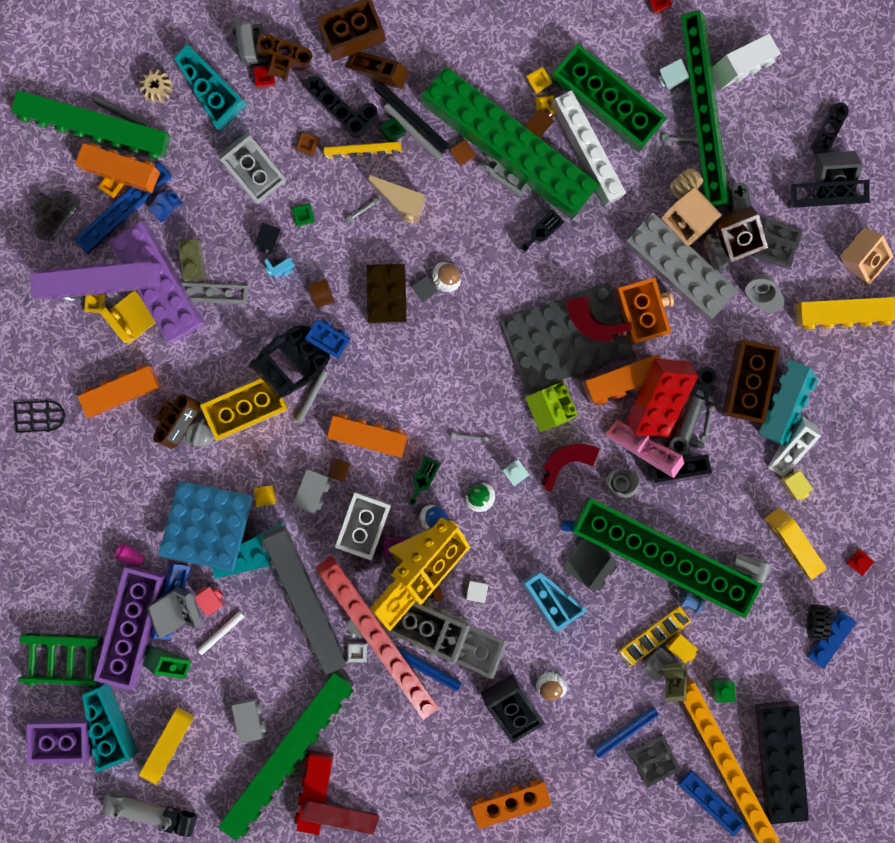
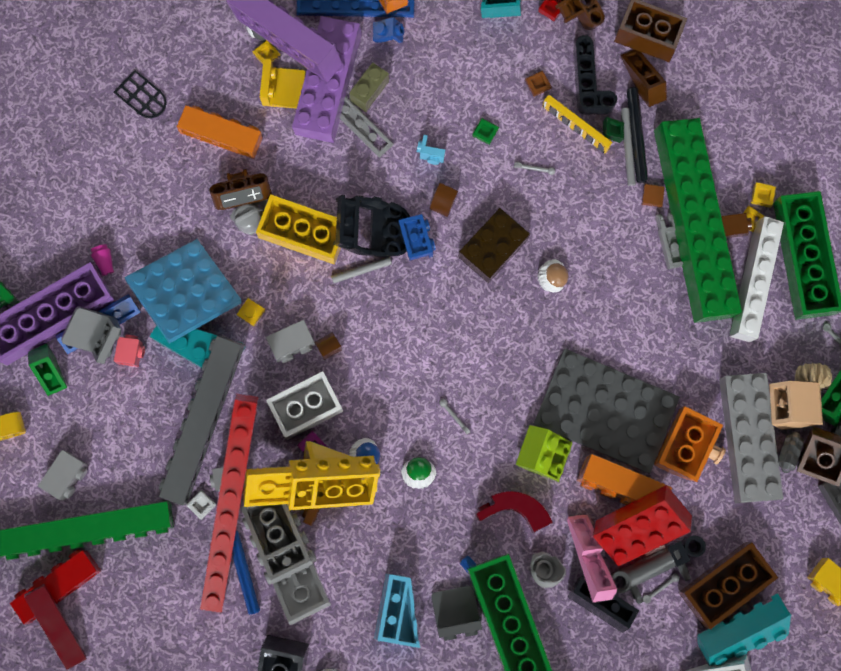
camera: 35 degrees right, 10 degrees down
(220, 633) = (111, 386): white bar -> none
(252, 167) = (479, 63): light grey slope -> none
(268, 238) = (442, 123): black brick -> none
(367, 436) = (375, 340): orange brick -> none
(402, 200) = (574, 188): tan slope -> none
(424, 289) = (527, 270): dark grey tile -> none
(429, 476) = (394, 406): dark green piece -> none
(477, 591) = (343, 547): white tile -> none
(515, 472) = (466, 478): light aqua brick -> none
(542, 225) = (671, 309): black piece -> none
(587, 324) = (633, 407): dark red arch -> none
(765, 293) = (802, 524): light grey piece -> none

